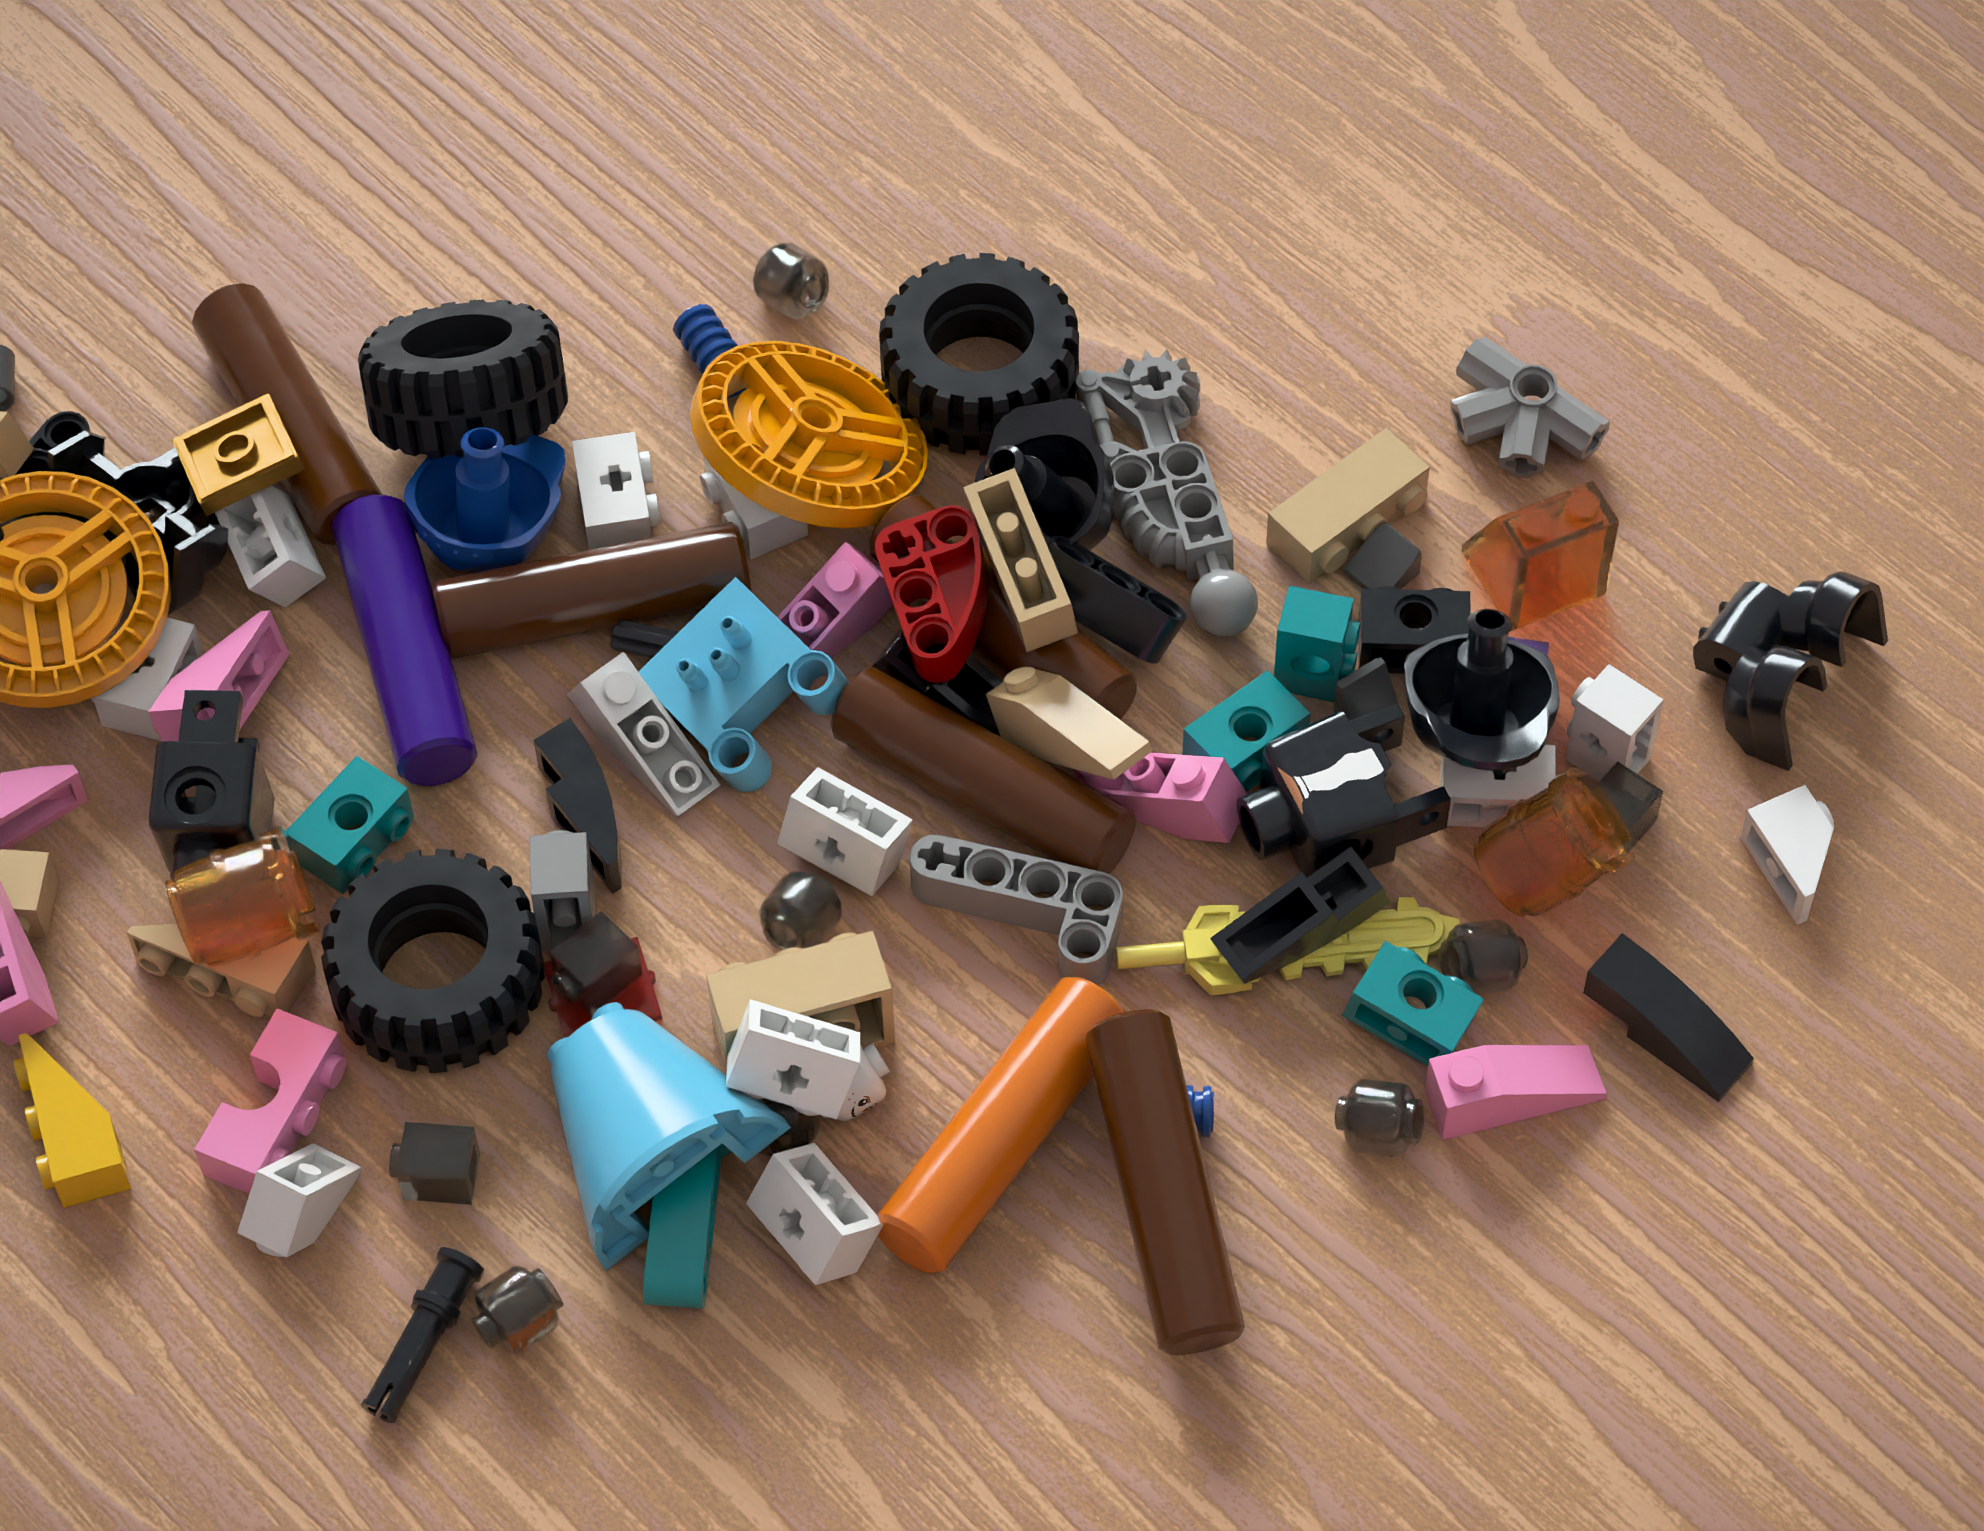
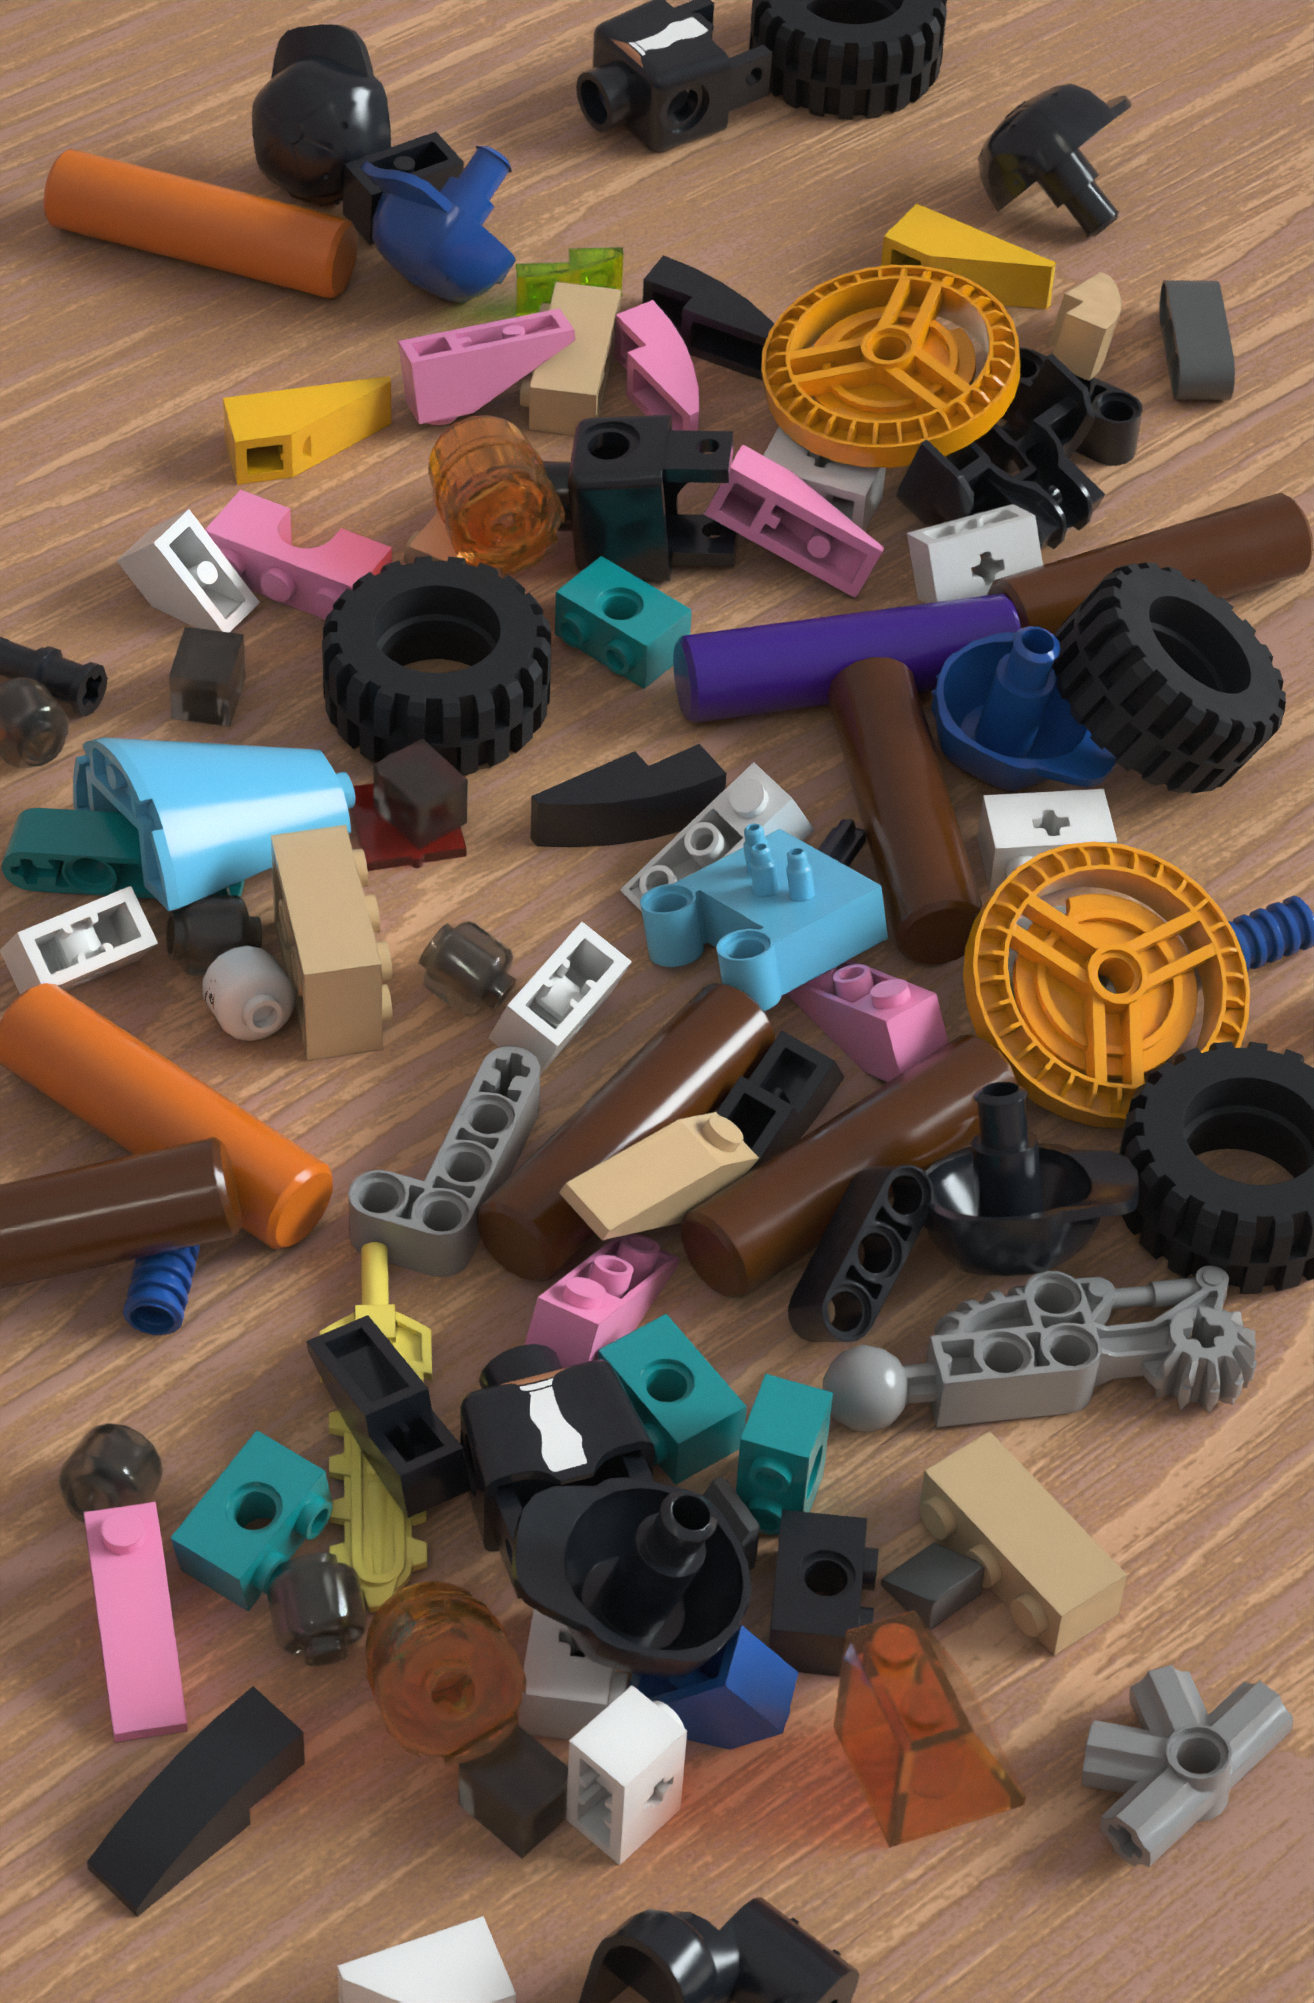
camera: 90 degrees right, 10 degrees down
(237, 454) = (1061, 503): tile -> none
(561, 885) = (504, 757): light grey brick -> none
(793, 1060) = (228, 889): white brick -> none
(947, 575) = (848, 1055): red beam -> none
(1021, 560) = (869, 1113): tan brick -> none

